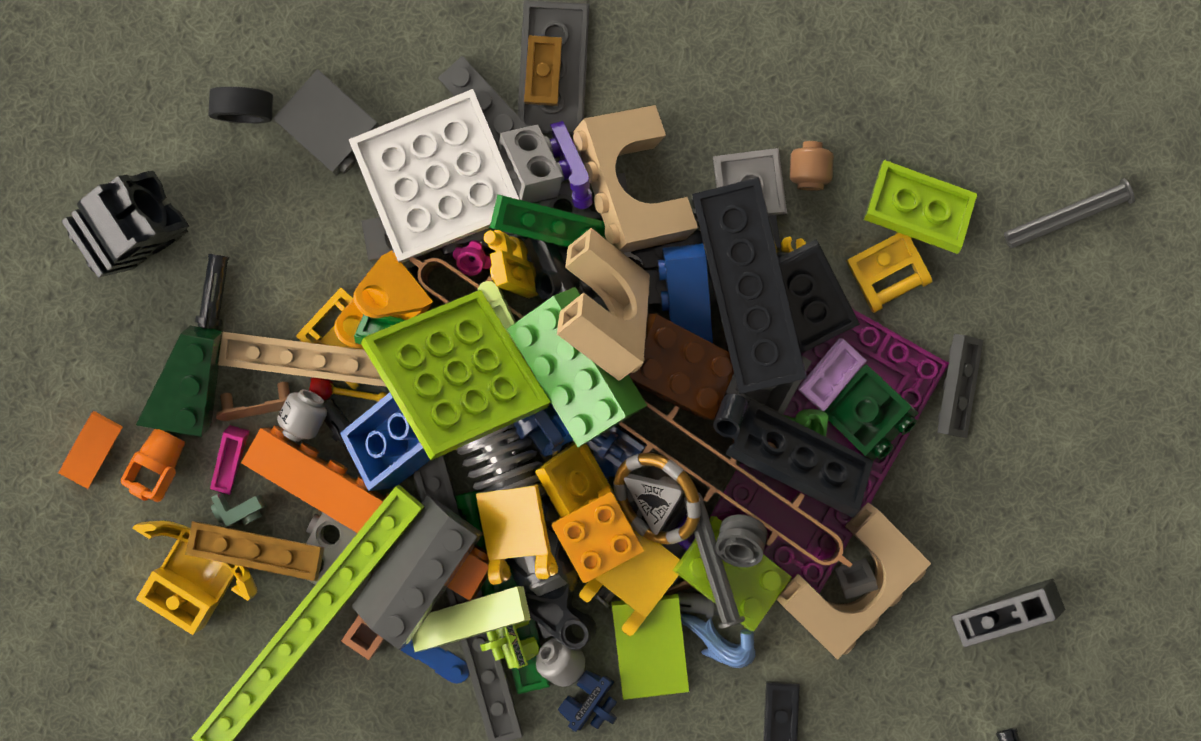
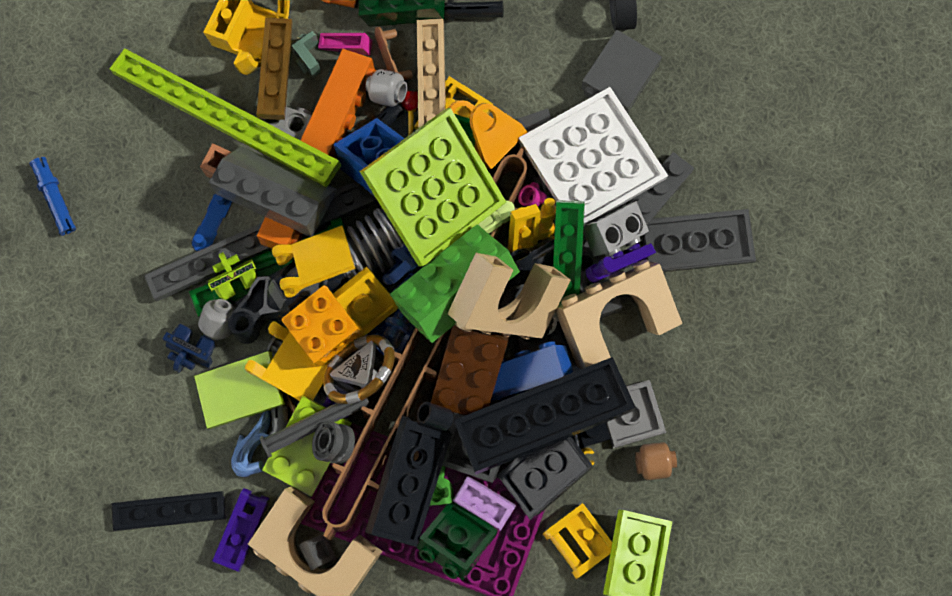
camera: 85 degrees right, 10 degrees down
(472, 619) = (242, 241): yellowish green tile -> none
(543, 70) = (693, 230): pearl gold plate -> none
(817, 666) = (240, 530): none -> dark purple plate

